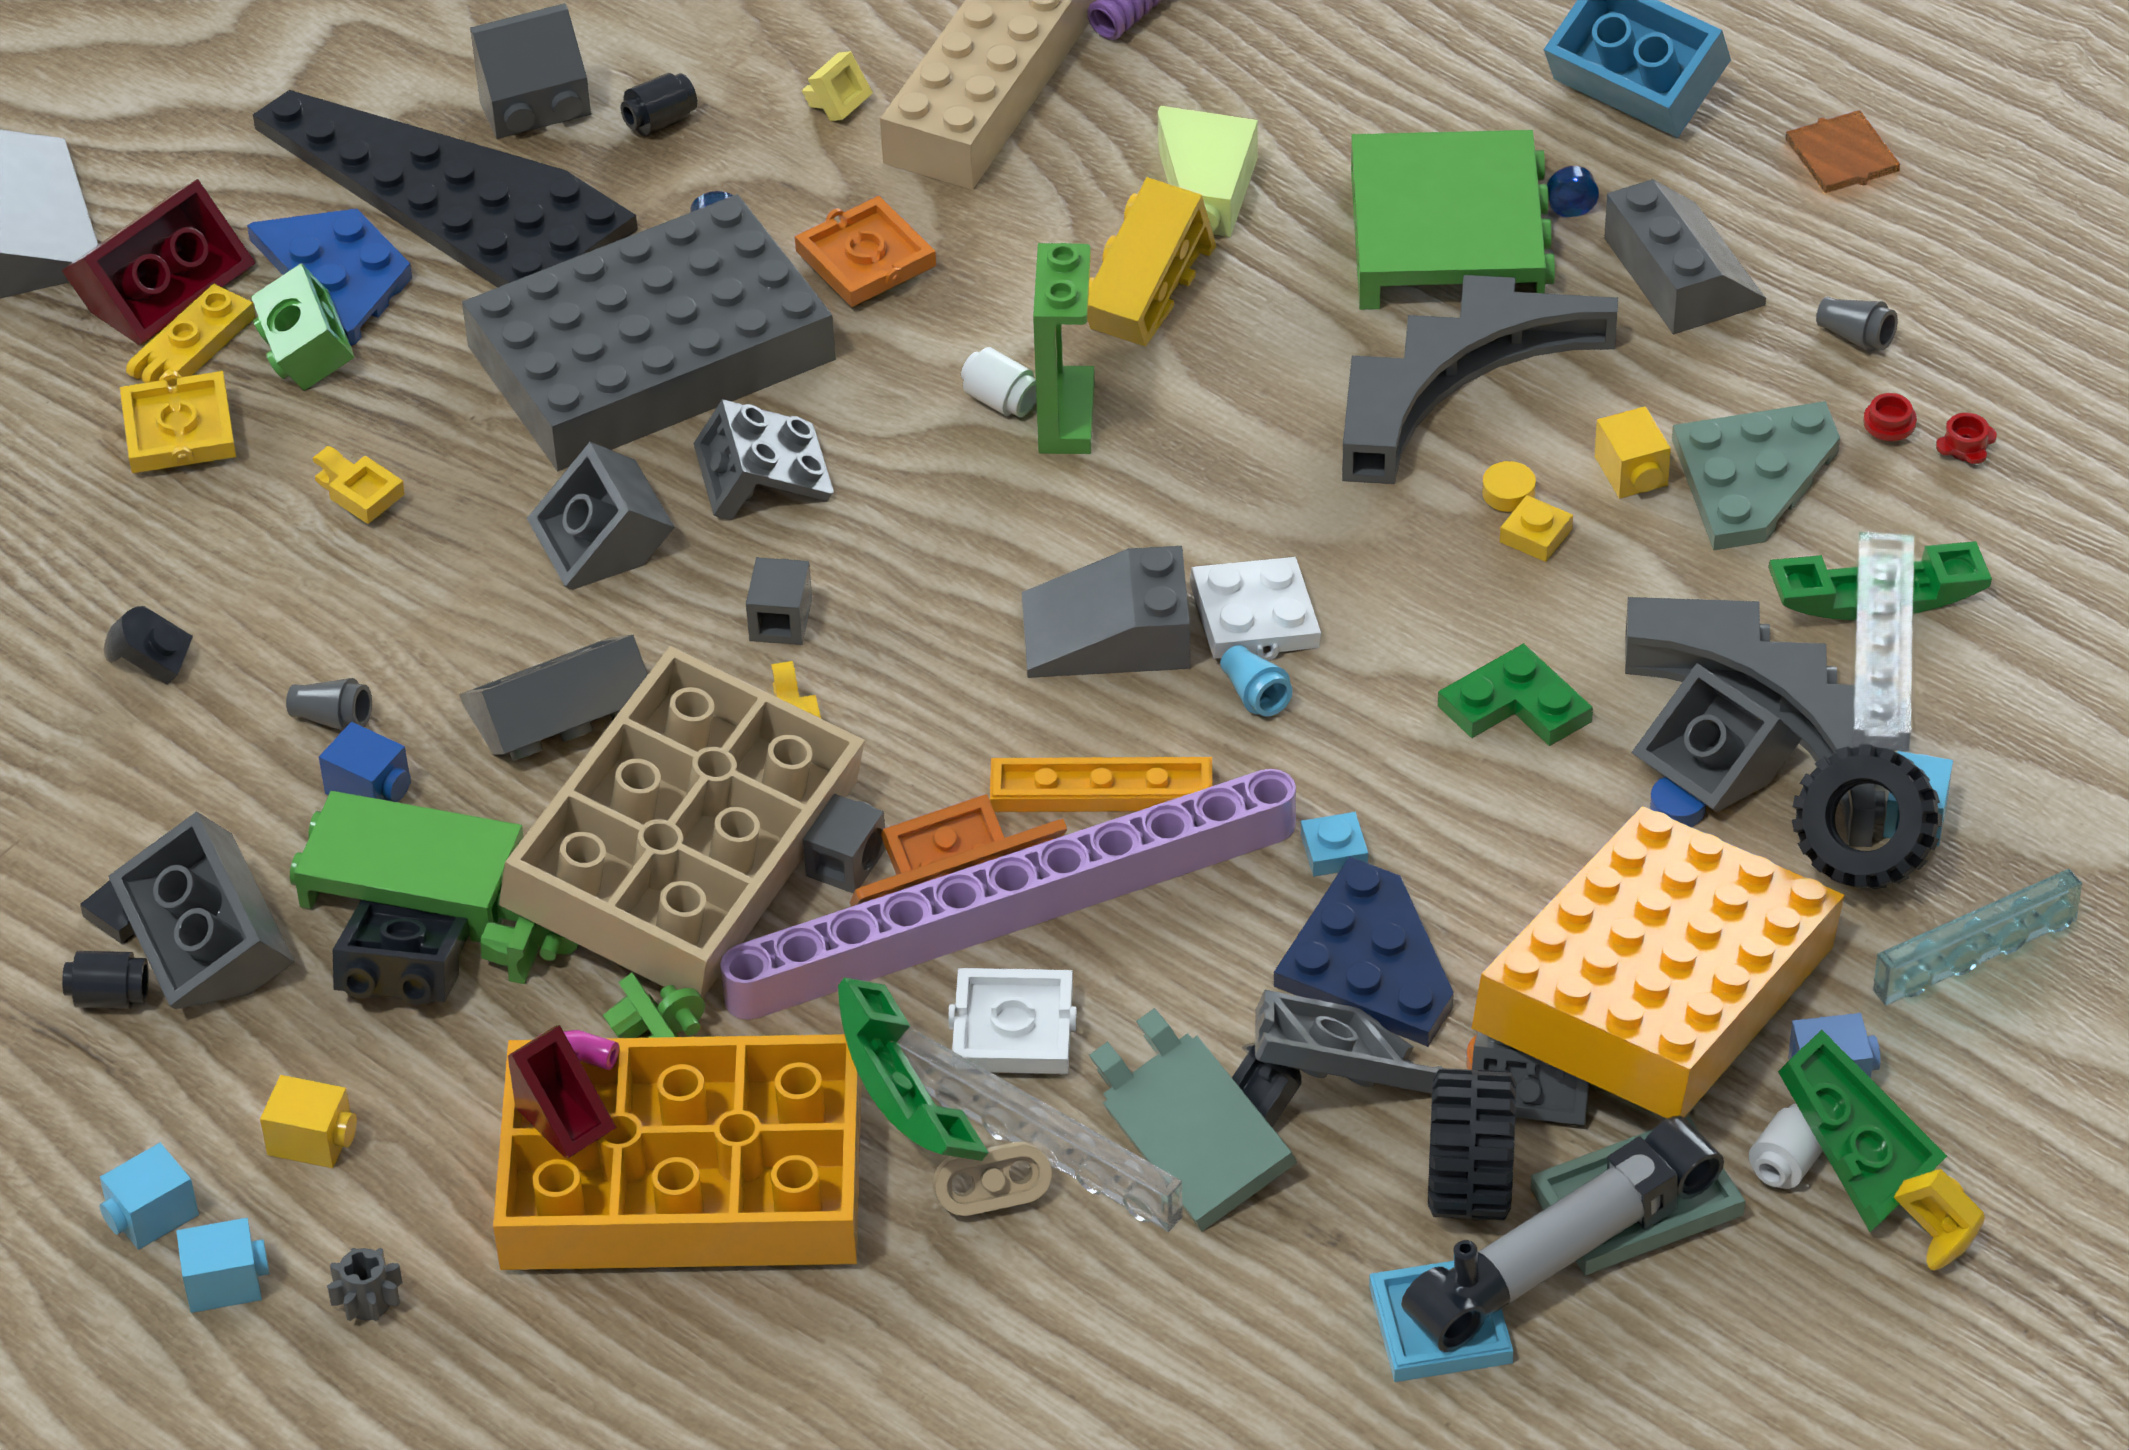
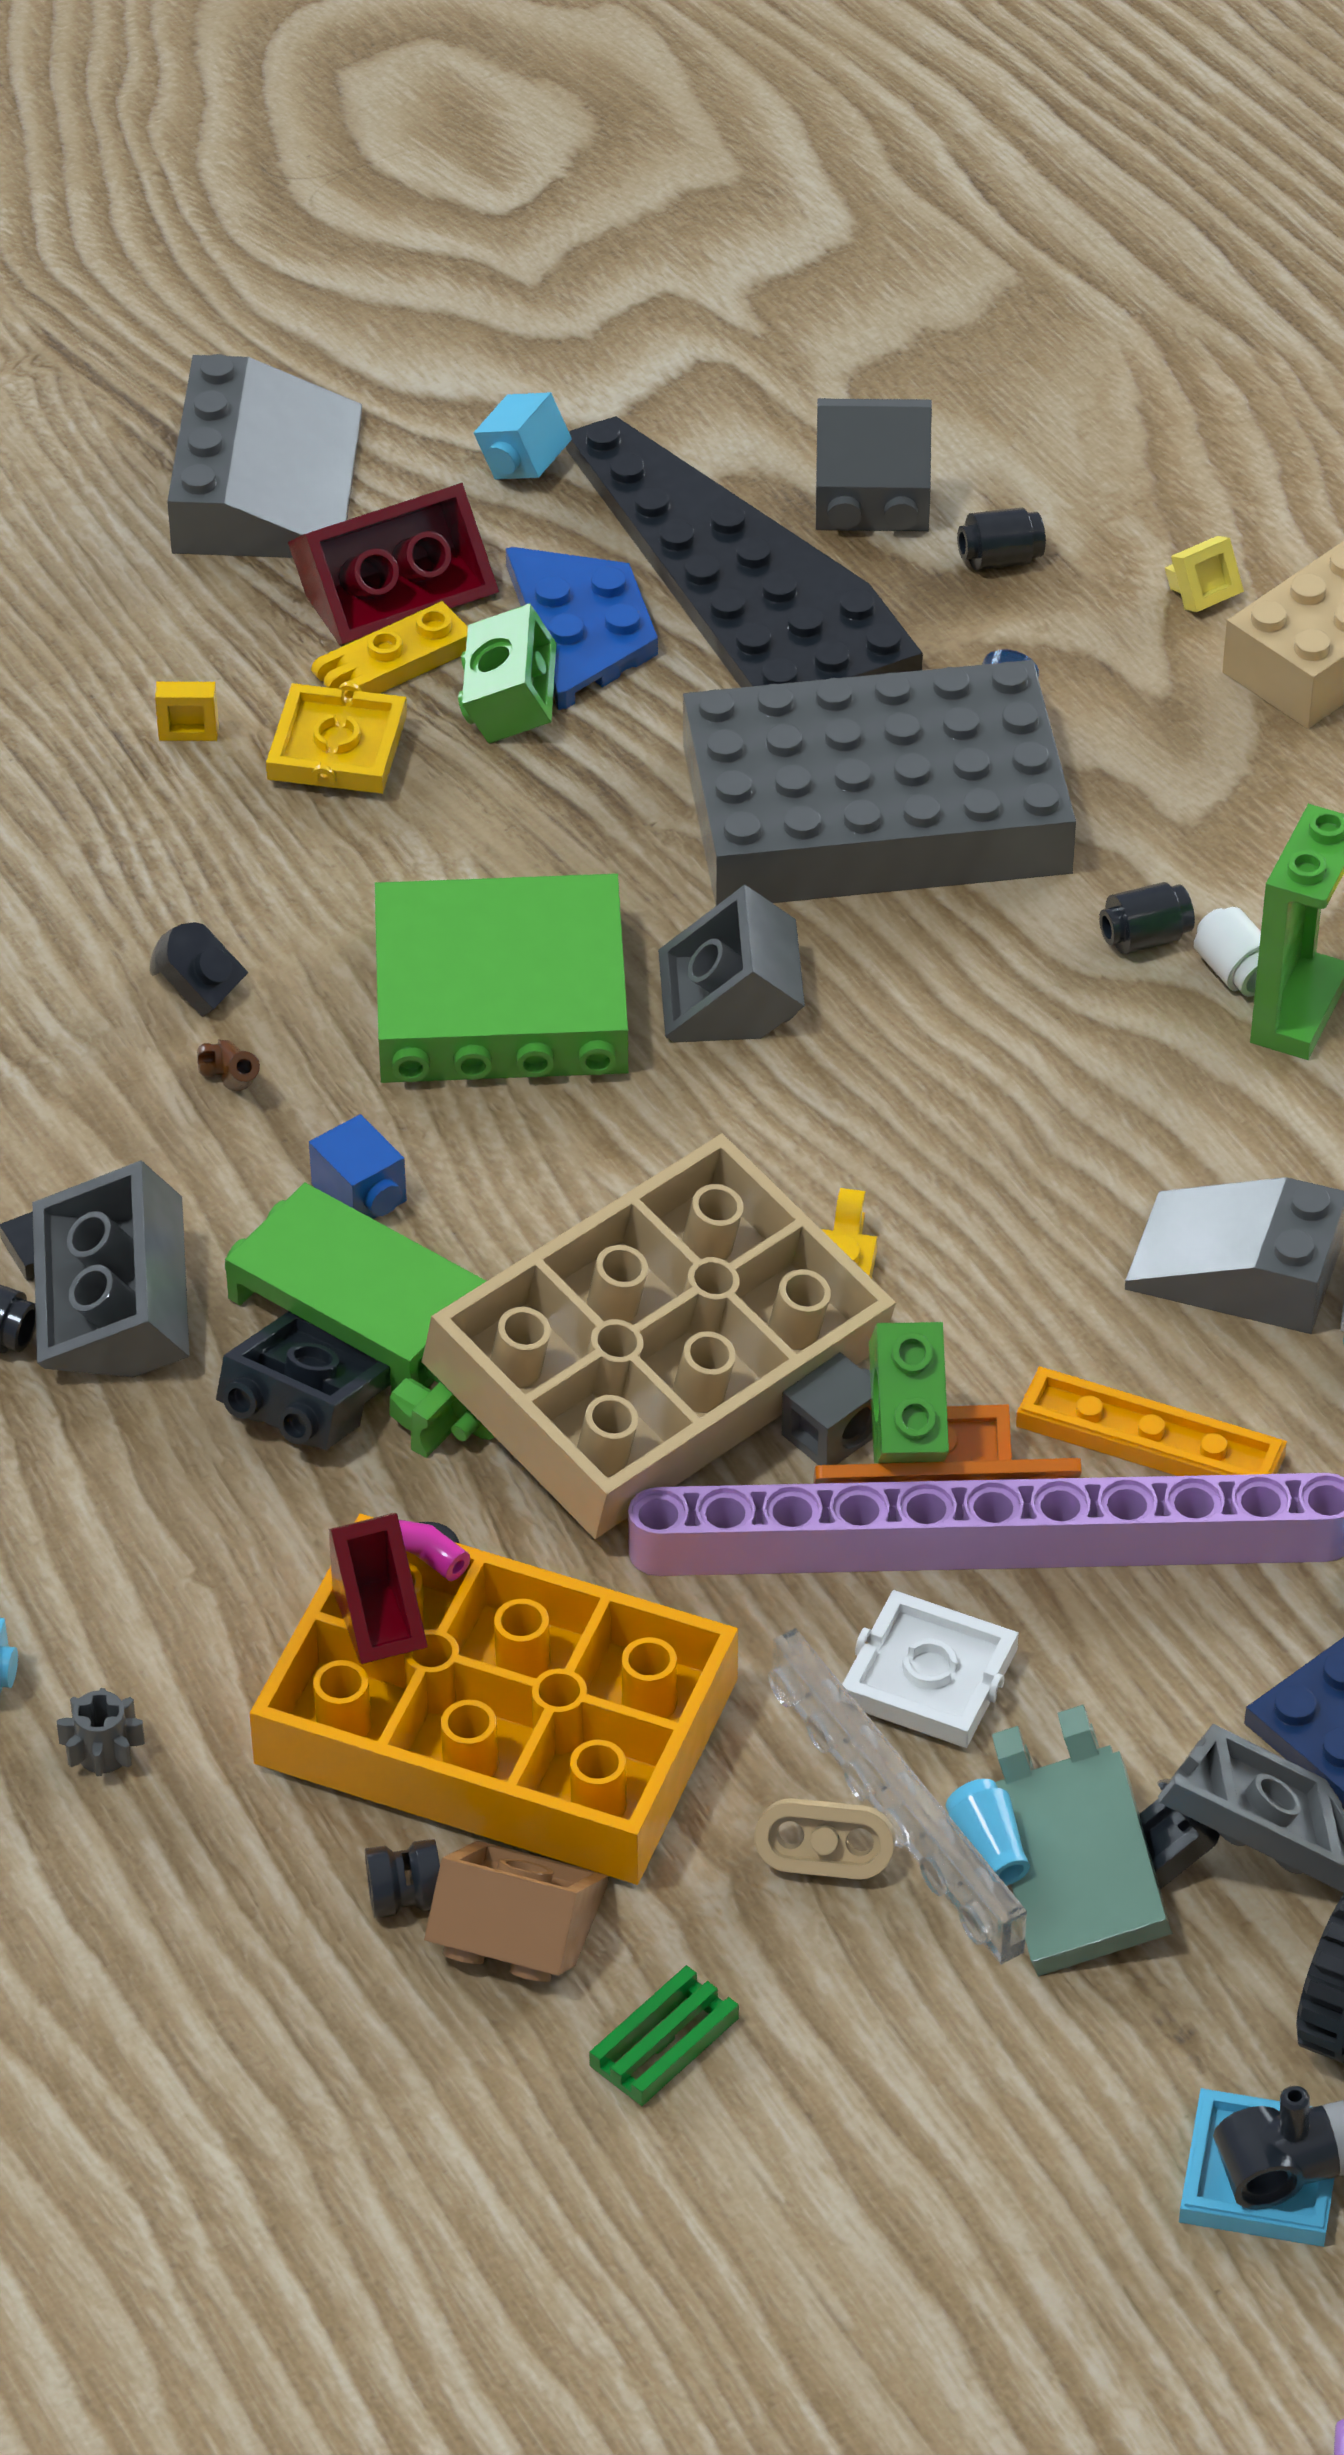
camera: 20 degrees right, 0 degrees up
(39, 435) = (186, 711): none -> yellow plate
(217, 717) = (235, 1066): none -> reddish brown arm
(220, 127) = (522, 435): none -> medium azure brick
(307, 1121) = (122, 1534): yellow brick -> none
(331, 702) = (358, 1088): dark grey cone -> none
(360, 487) = (491, 856): yellow plate -> none
(412, 577) = (500, 978): none -> bright green panel
(556, 696) = (591, 1153): dark grey slope -> none
(640, 1012) = (539, 1536): bright green hips -> none
(669, 1318) = (388, 1880): none -> black wheel
(758, 447) = (941, 949): dark grey bracket -> none
(770, 1315) = (513, 1909): none -> medium nougat slope
(779, 601) = (883, 1120): dark grey brick -> none
(865, 250) = (1154, 764): orange plate -> none
(872, 1030) = (753, 1630): green slope -> none
(910, 807) = (908, 1393): none -> bright green brick
(916, 376) = (1146, 917): none -> black brick
(947, 1335) = (699, 1998): none -> green tile
(1120, 1122) = (990, 1825): none -> medium azure cone

